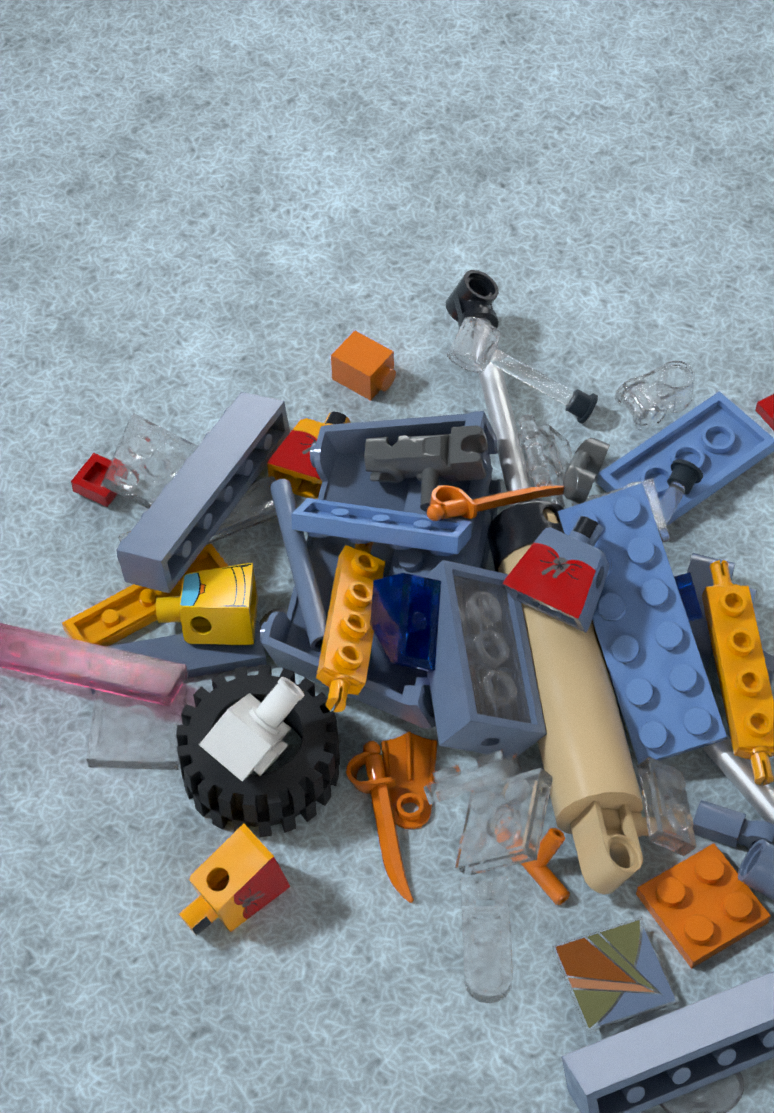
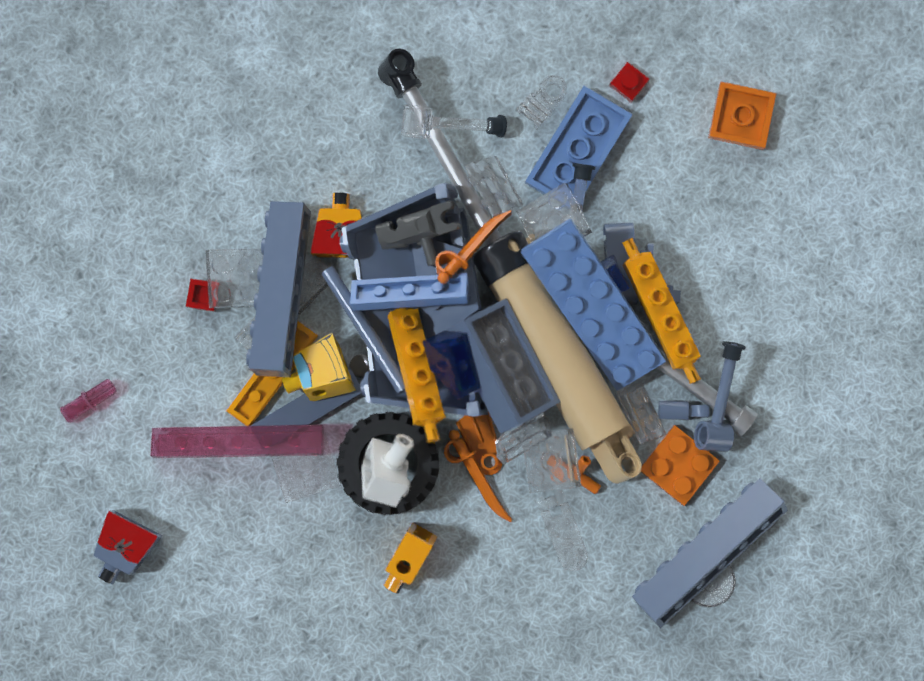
camera: 25 degrees left, 30 degrees up
(363, 365) = (341, 143): orange brick -> none
(562, 574) = (541, 302): torso -> none
(583, 469) = (520, 206): dark grey bar -> none
(614, 977) = (642, 528): tile -> none

